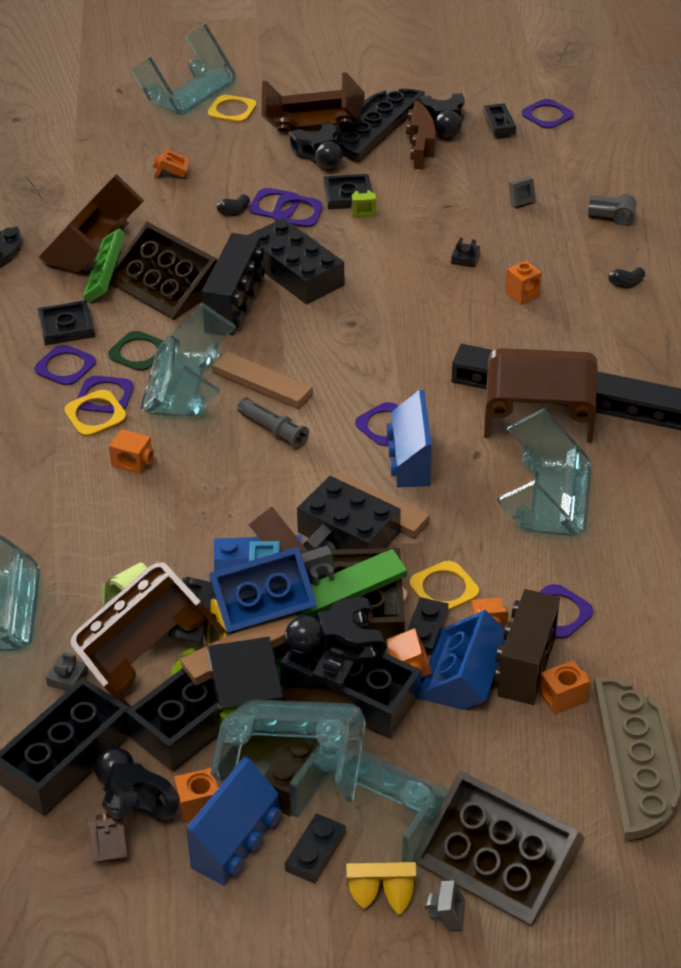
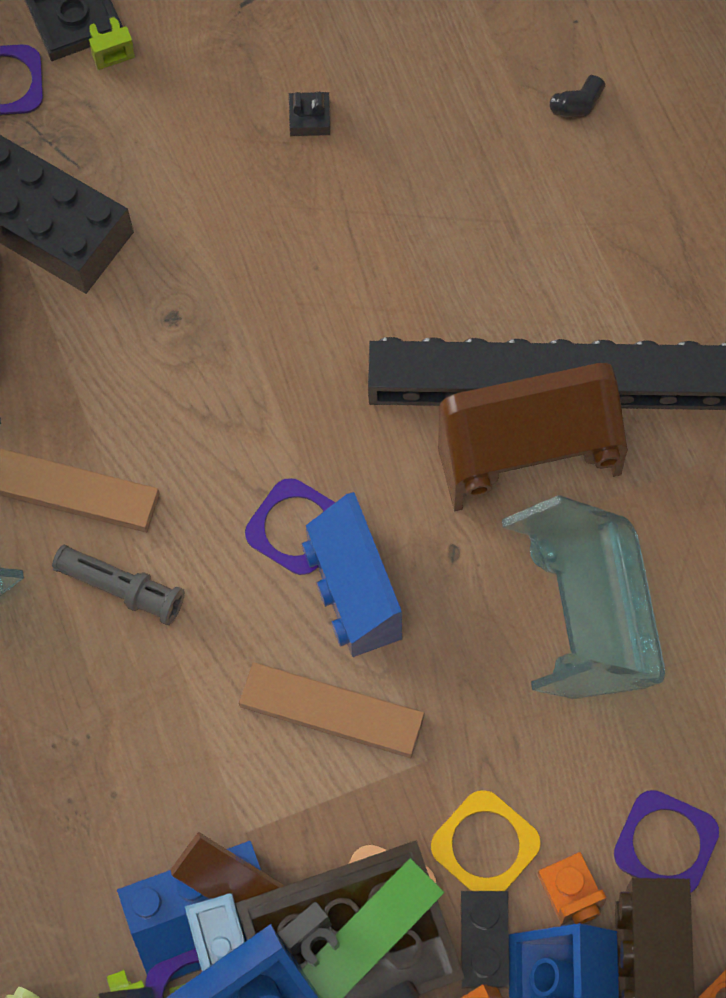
camera: 15 degrees left, 25 degrees up
(317, 540) = (267, 827): dark grey tile -> none
(350, 514) = (306, 768): black brick -> none
(523, 282) = (423, 163): orange brick -> none

